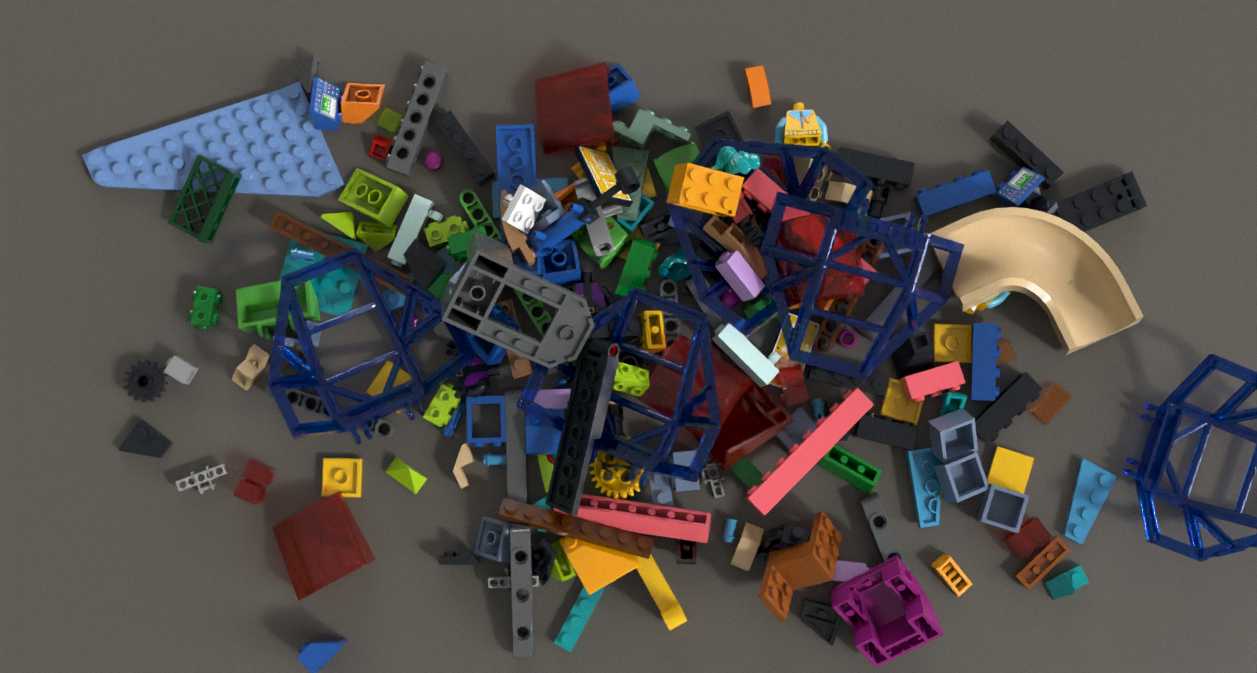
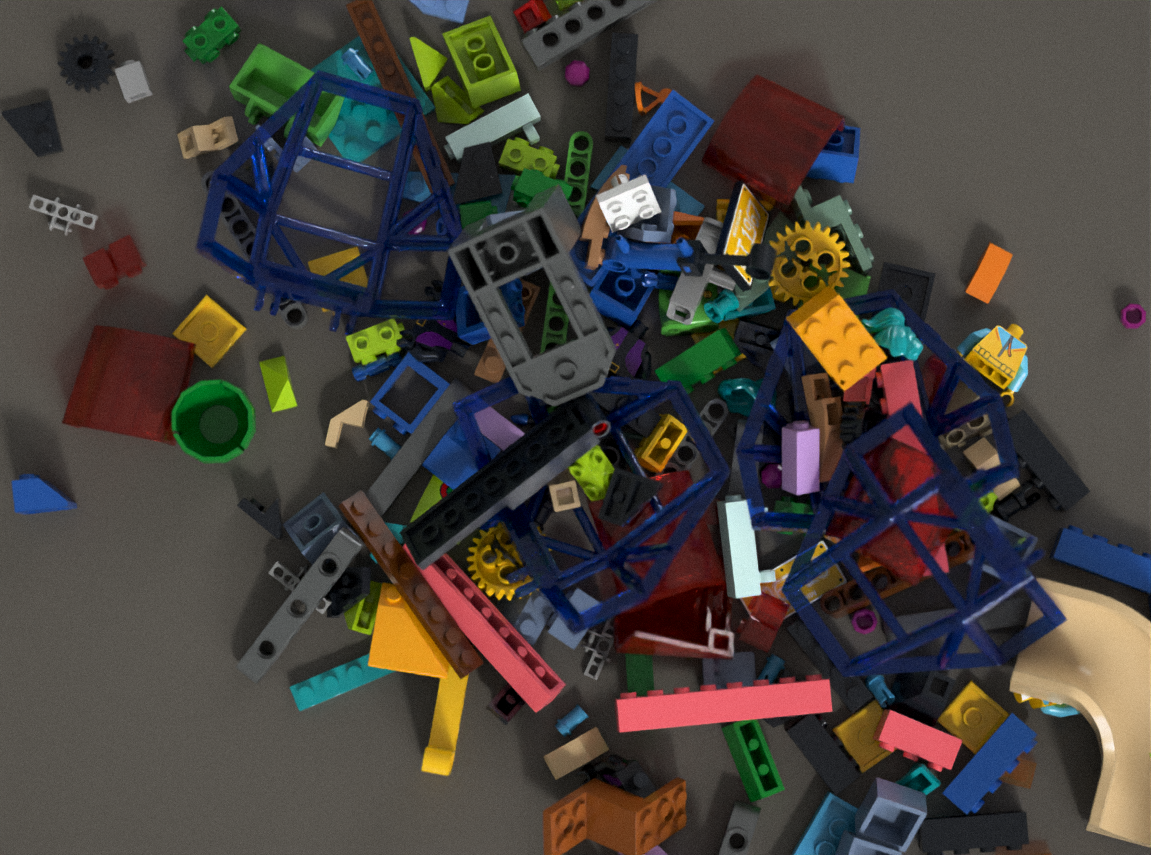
camera: 45 degrees right, 0 degrees up
(386, 527) = (213, 421): none -> green plate
(492, 134) = (661, 96): none -> orange piece
(576, 239) = (659, 281): none -> blue axle
(621, 404) = (564, 491): none -> tan slope
(623, 225) = (721, 306): none -> teal bush
(650, 145) = (819, 243): none -> yellow gear
(659, 377) = (627, 496): none -> black wing
(857, 46) = (1132, 316): none -> magenta tile
(888, 370) = (876, 685): none -> dark azure pin

